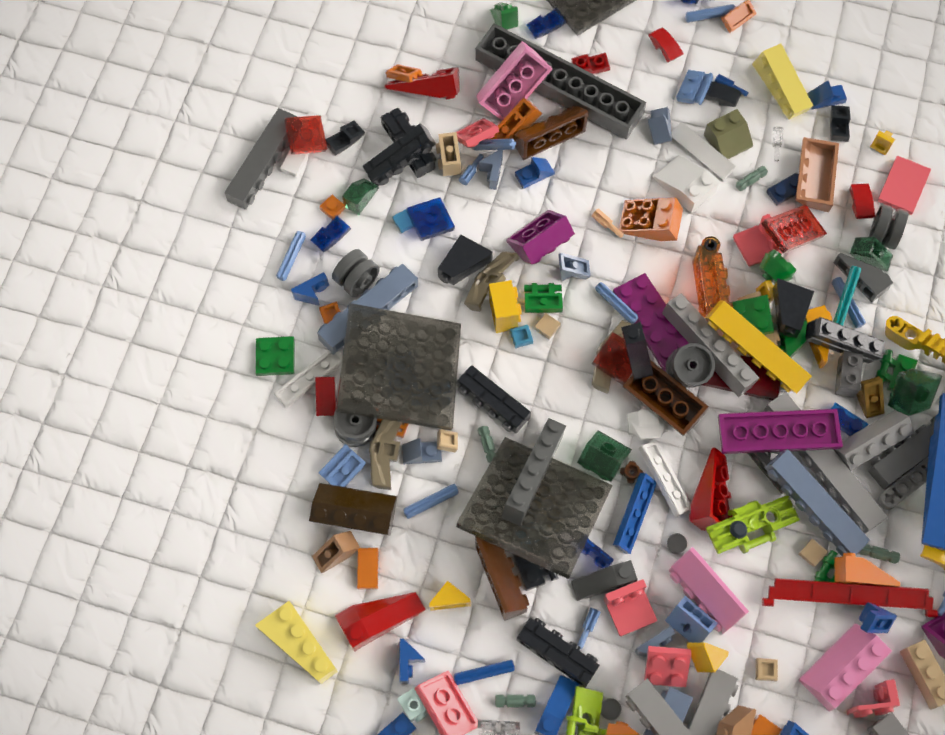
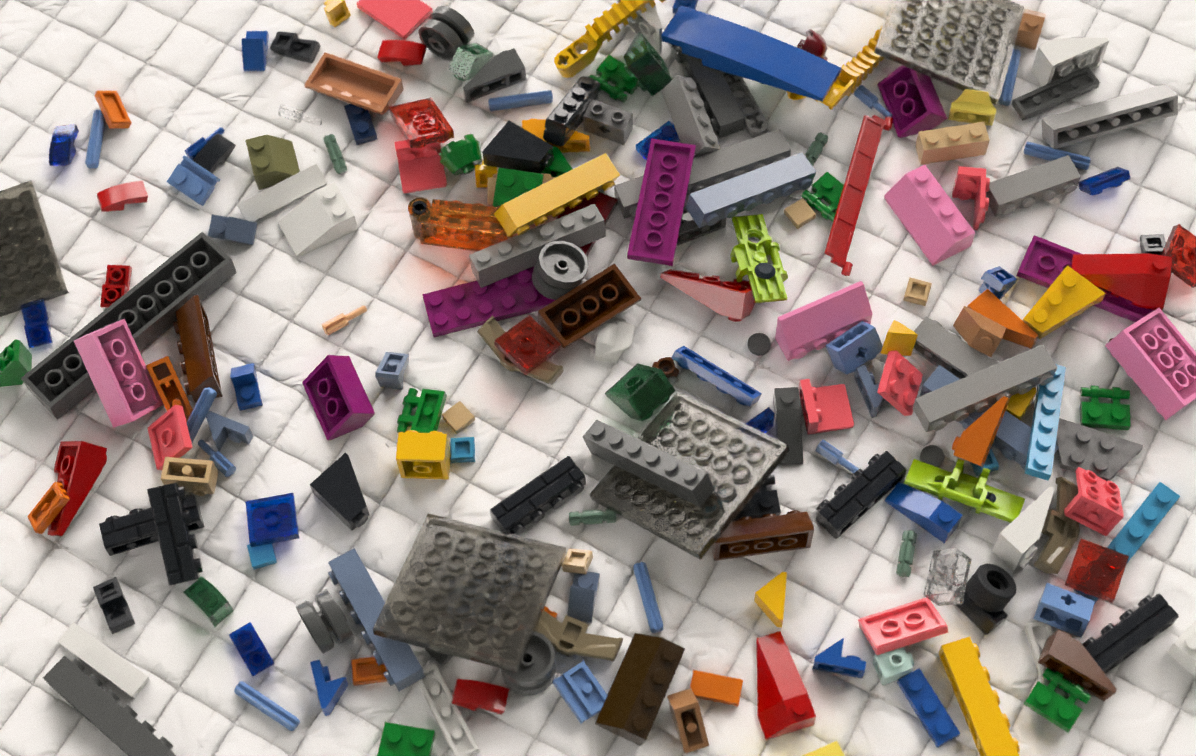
camera: 75 degrees left, 5 degrees down
(306, 134) = (96, 650): clear red plate -> none
(332, 207) = (212, 640): orange plate -> none
(484, 672) = (867, 580): blue axle -> none
(490, 274) = (379, 467): dark tan plate -> none
(616, 303) = (452, 333): medium blue axle -> none
(637, 351) = (533, 313): black slope -> none
(652, 218) = (353, 270): orange slope -> none
(665, 478) = (682, 335): white tile -> none
(782, 81) = (222, 86): light yellow wedge -> none
(847, 295) = (516, 96): teal axle -> none
(861, 571) = (834, 170): orange slope -> none
(871, 397) = (643, 108): pearl gold slope -> none
(876, 619) = (885, 173): blue slope -> none

